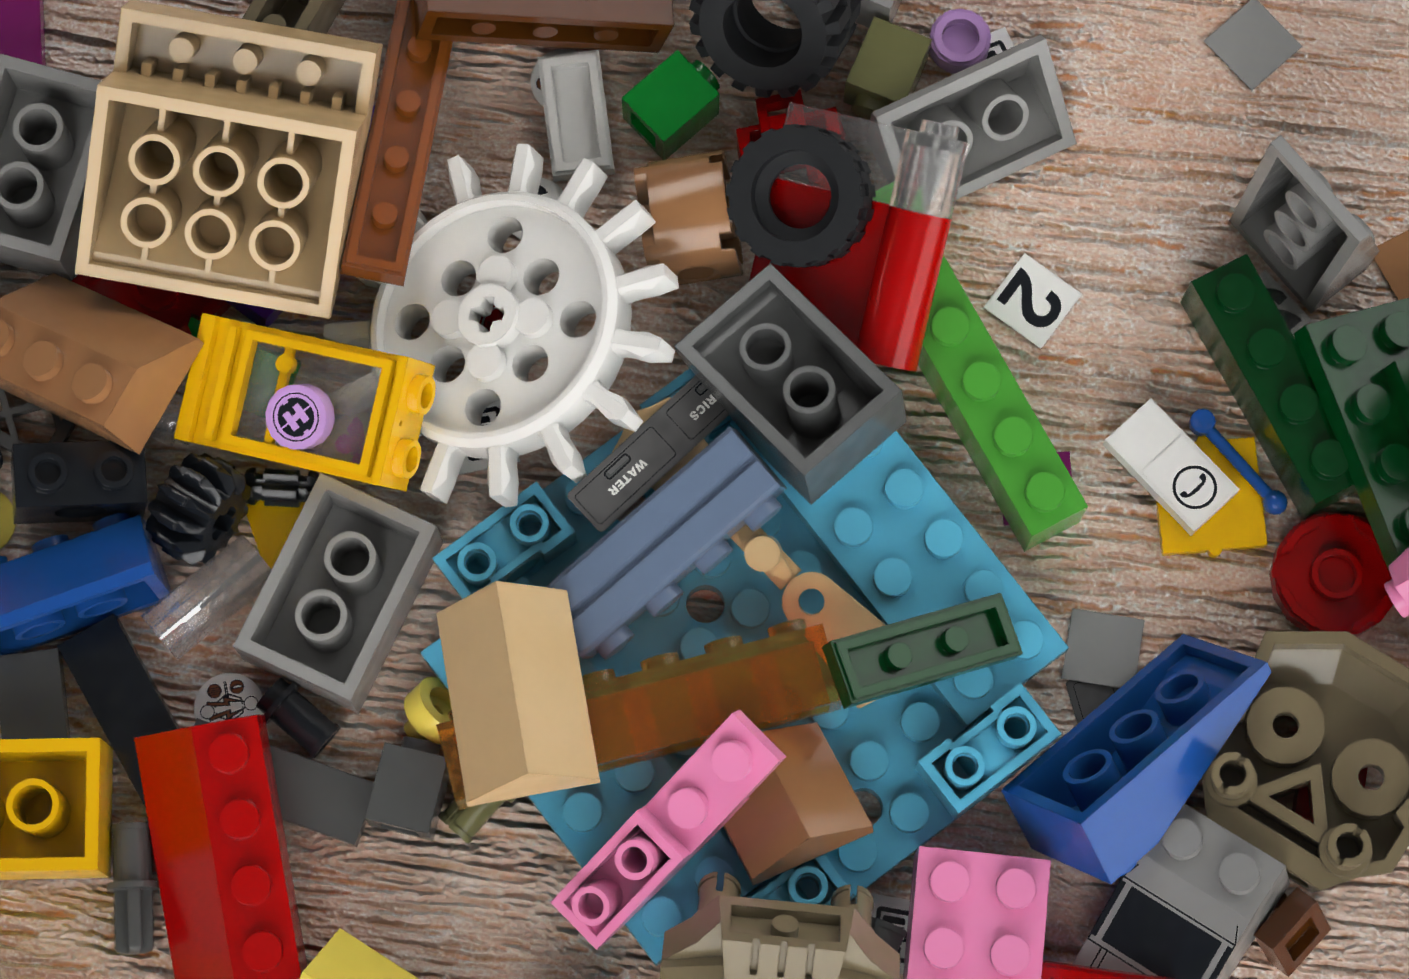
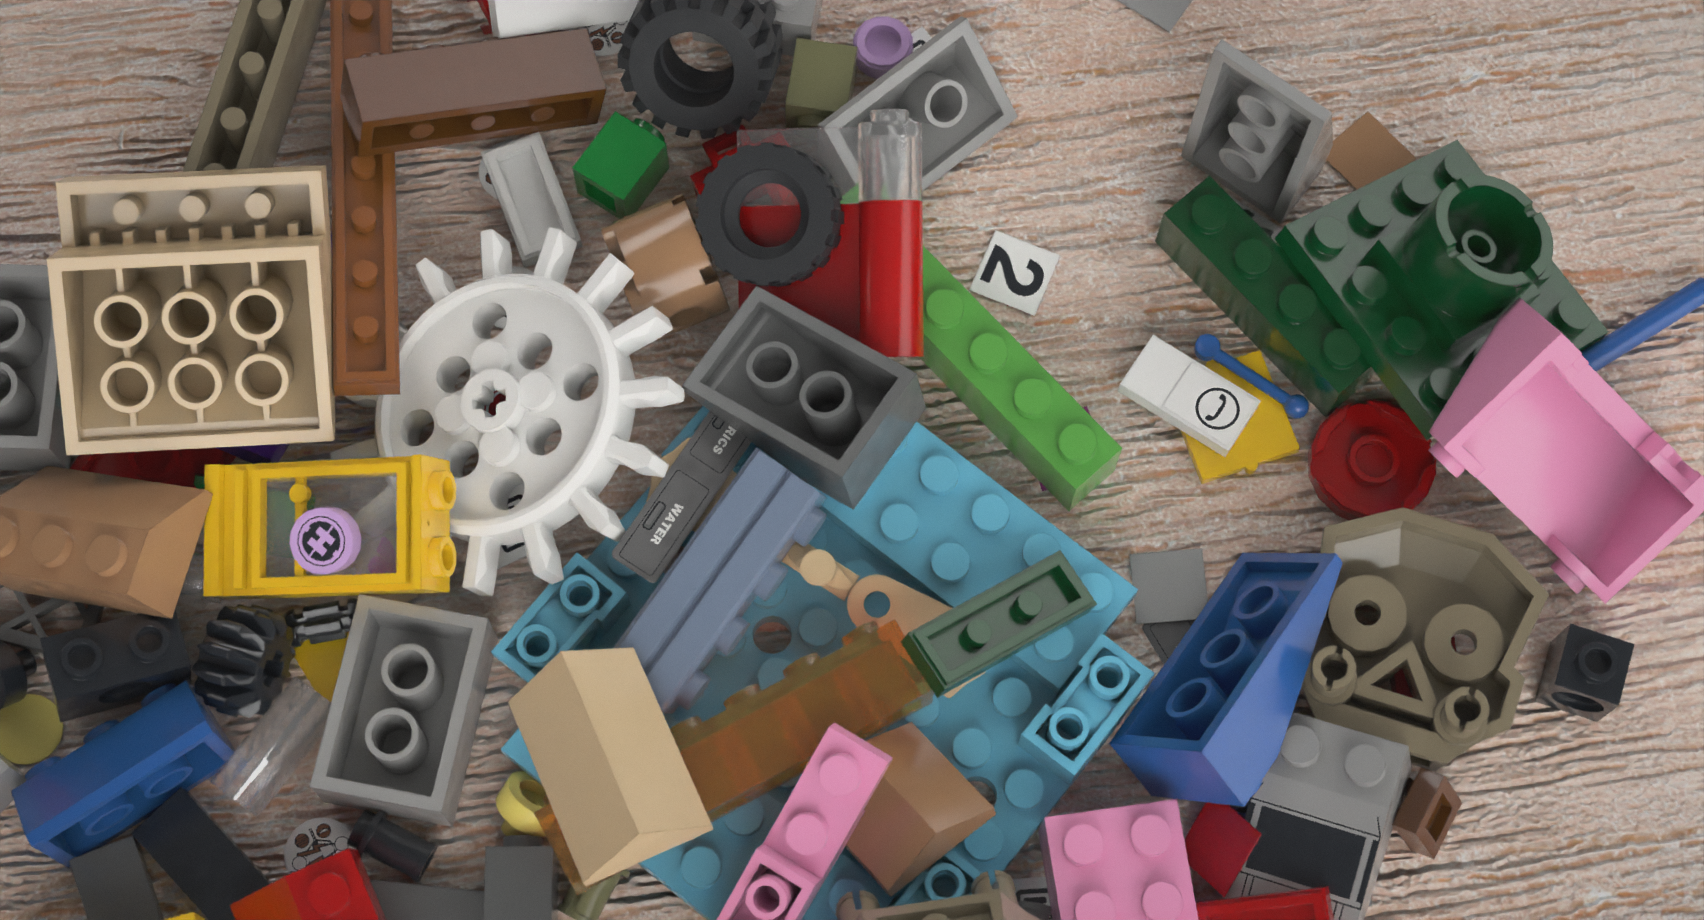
camera: 15 degrees left, 5 degrees down
(1082, 913) = (1220, 845): none -> red sticker

